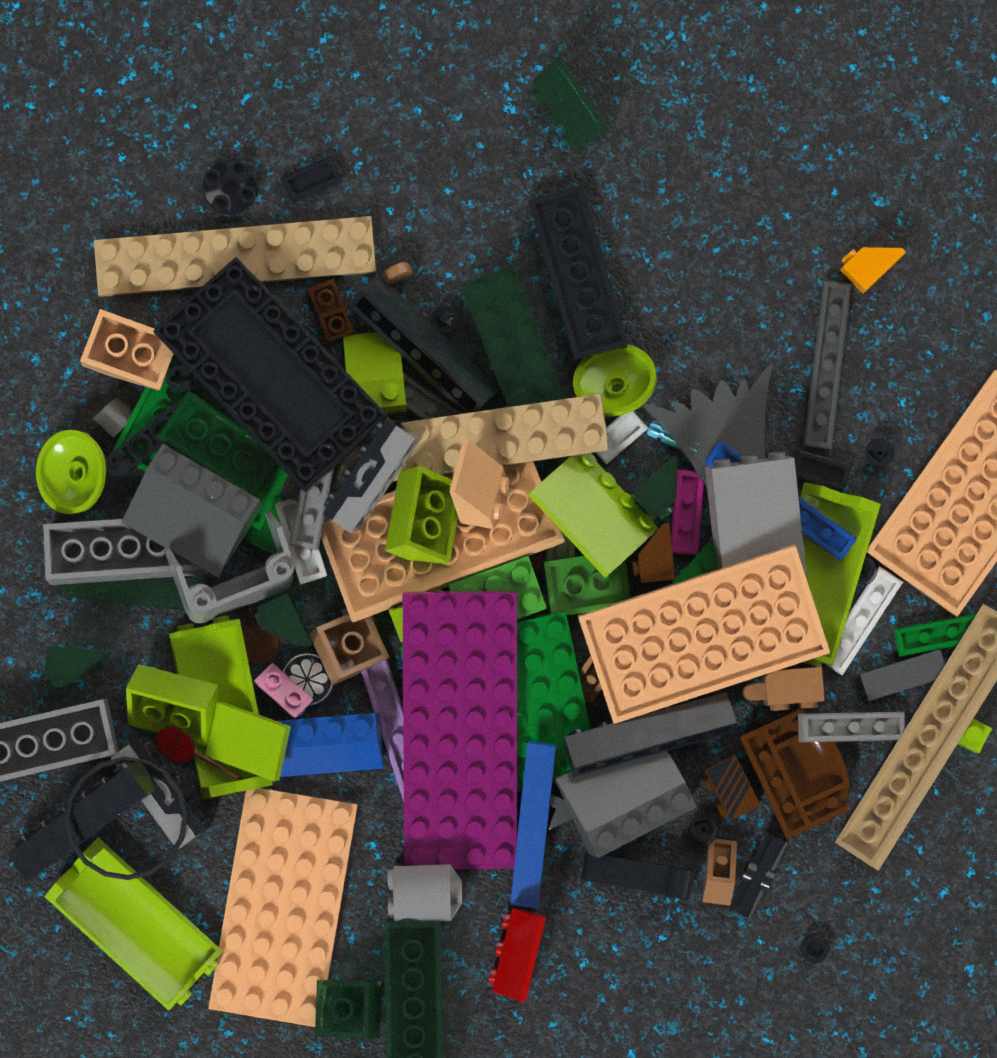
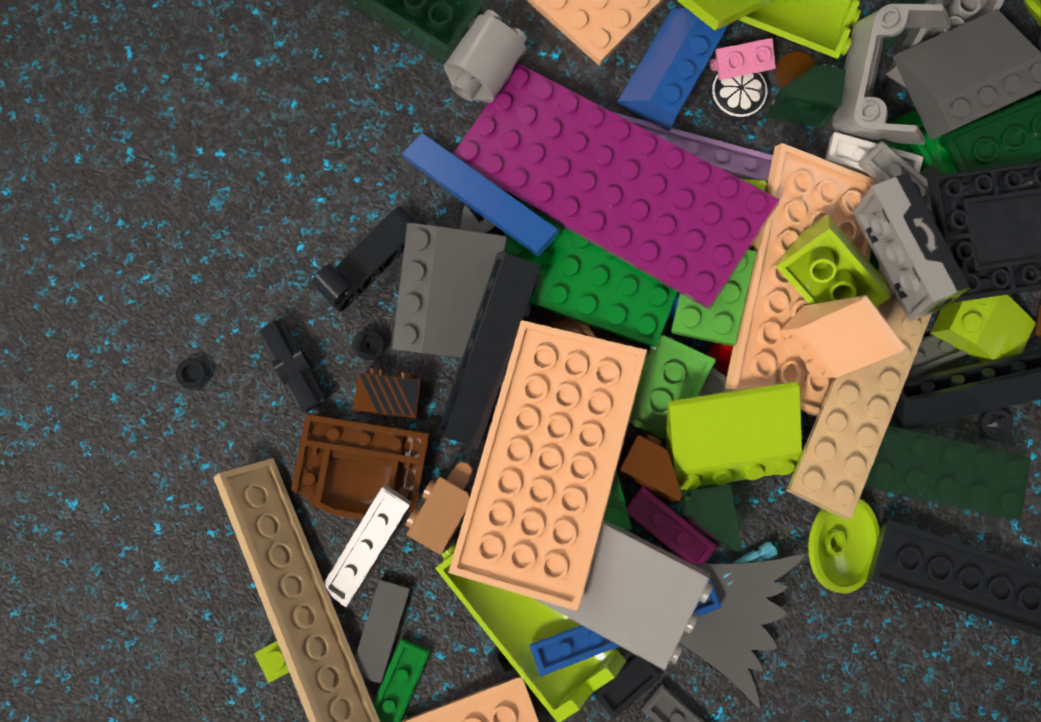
camera: 120 degrees right, 5 degrees down
(348, 647) = (748, 137): medium nougat slope -> none
(517, 953) = (373, 107): red slope -> none
(622, 434) = (783, 514): white tile -> none
(720, 872) = (320, 333): medium nougat slope -> none
(864, 617) = (460, 631): white tile -> none

